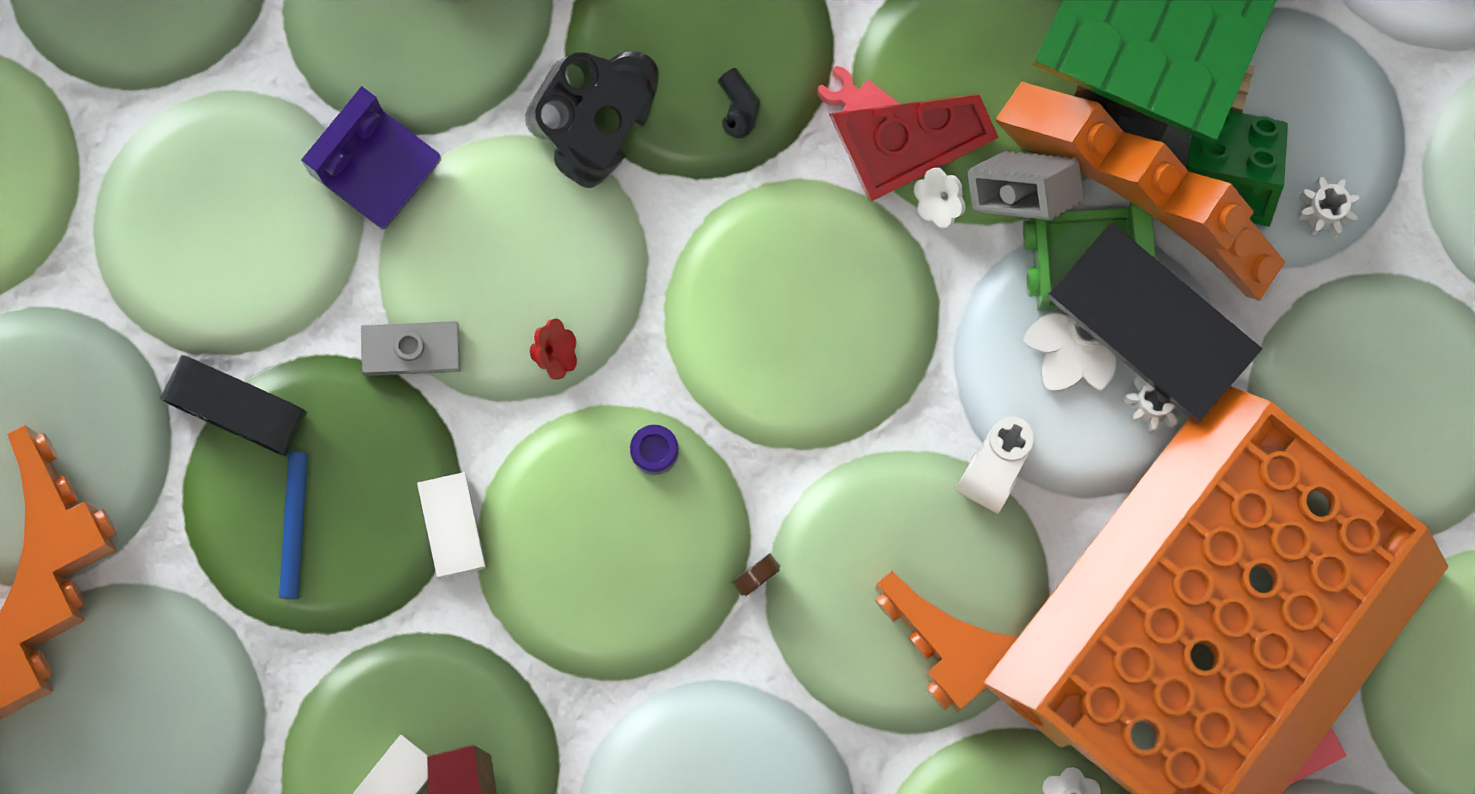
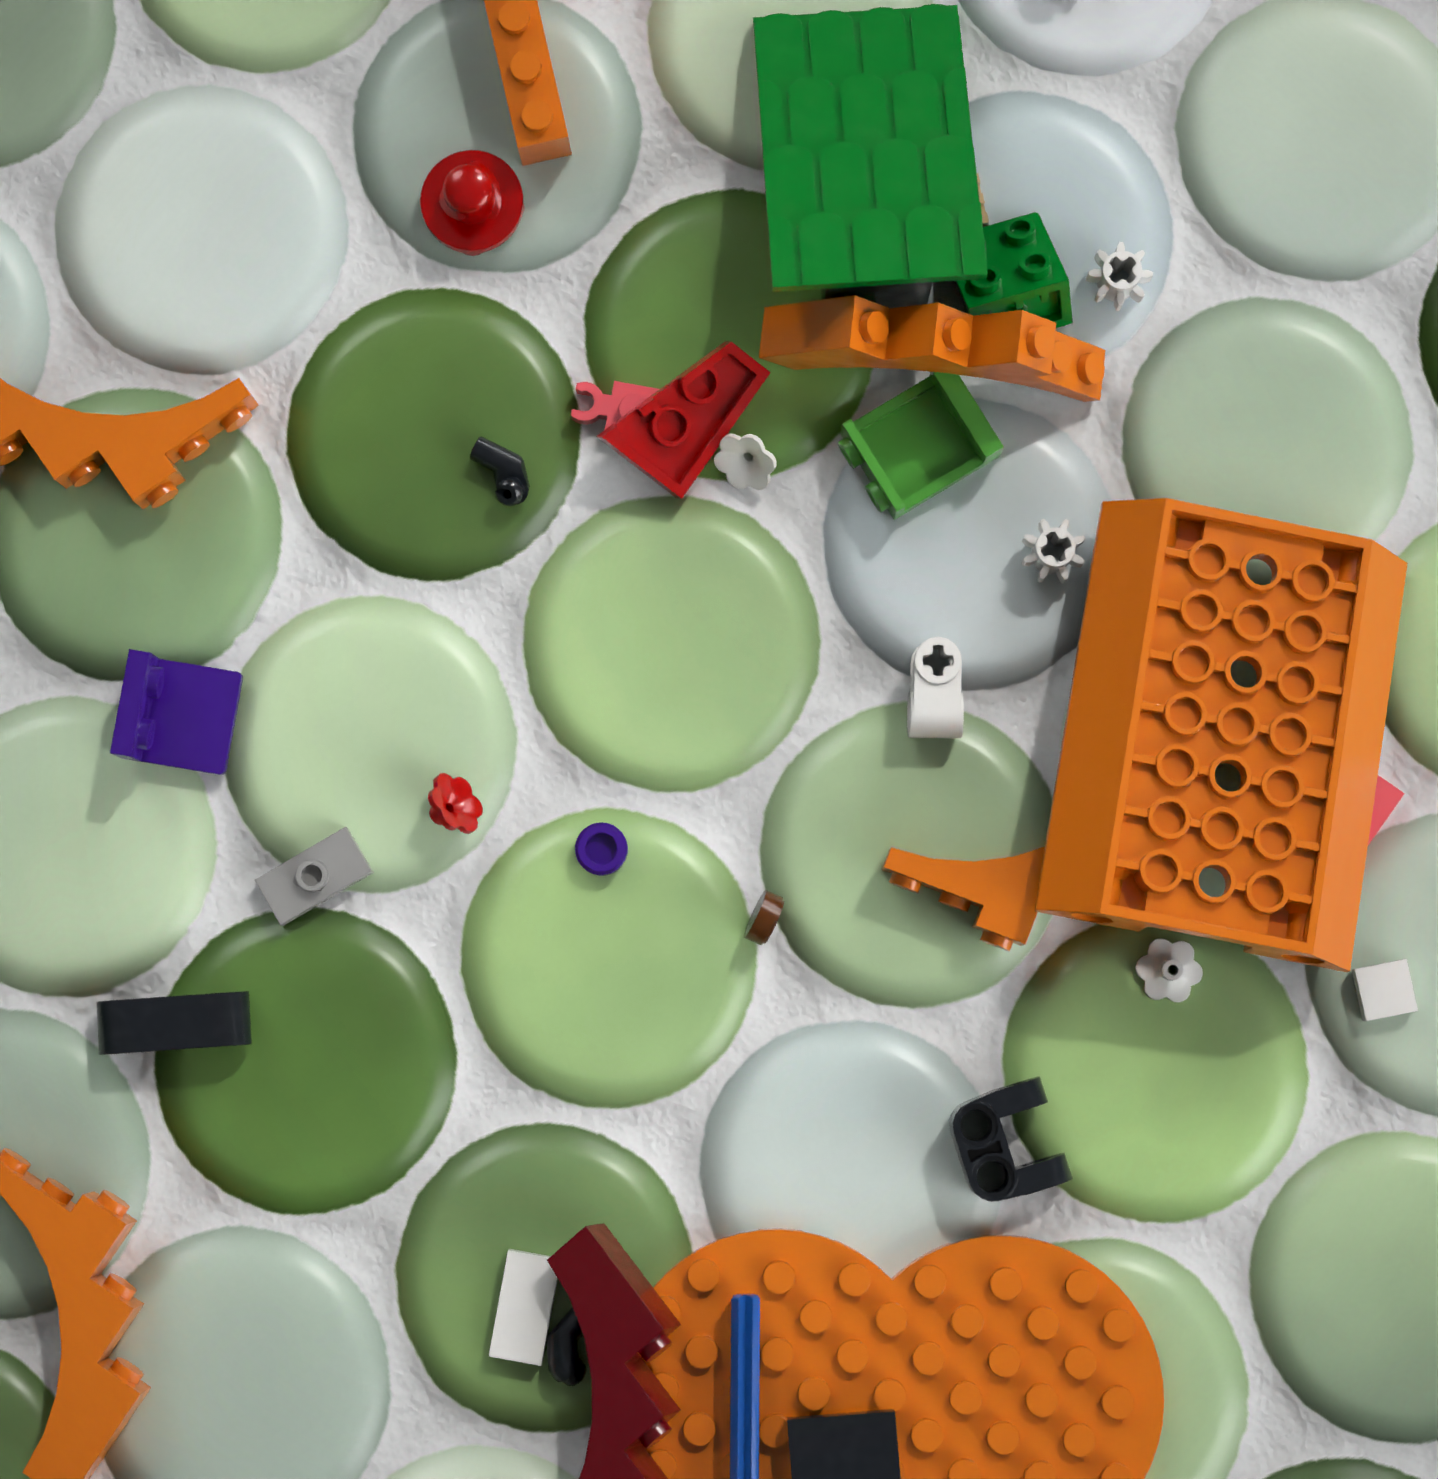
camera: 25 degrees left, 5 degrees up
(293, 525) = (295, 1106): blue bar -> none
(451, 525) = (447, 1025): white tile -> none
(622, 83) = (378, 511): black piece -> none
(1026, 185) = (823, 408): light grey brick -> none
(1069, 354) = (948, 547): white plate -> none
(1154, 323) = (1015, 478): black tile -> none

